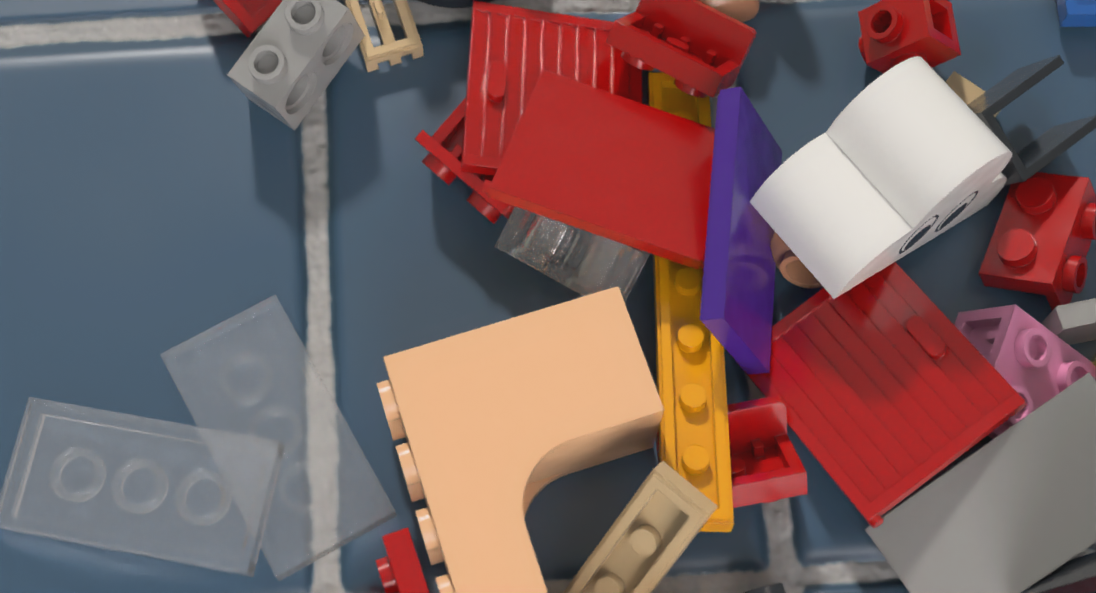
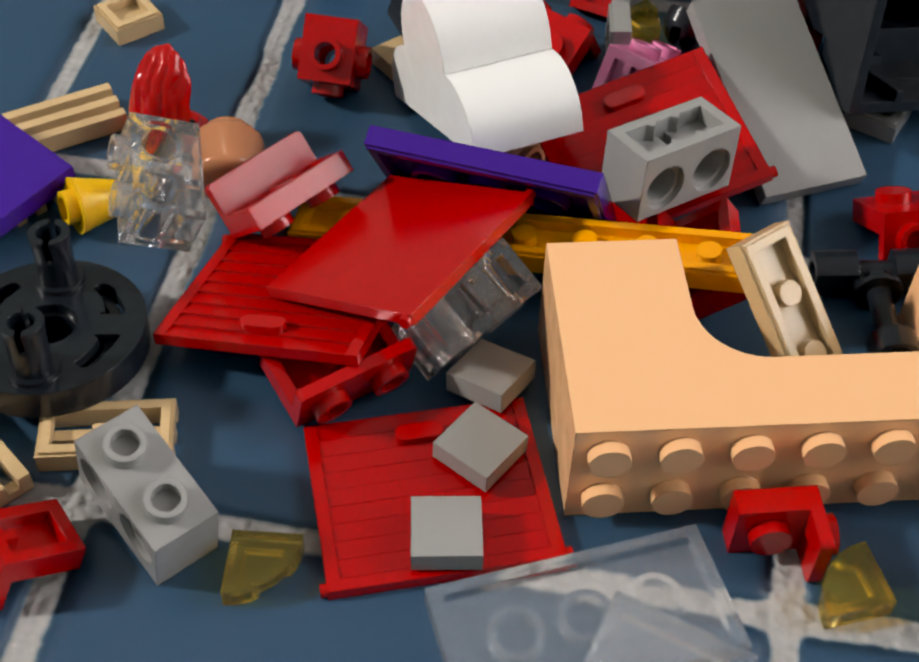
camera: 75 degrees left, 20 degrees down
(275, 162) = (258, 562): none -> clear yellow tile
(331, 297) = (446, 533): none -> light grey tile
(379, 275) = (364, 492): none -> red piece
(431, 303) = (480, 446): none -> light grey tile
(519, 291) = (490, 375): none -> light grey tile
(811, 392) = (669, 157): none -> light grey brick

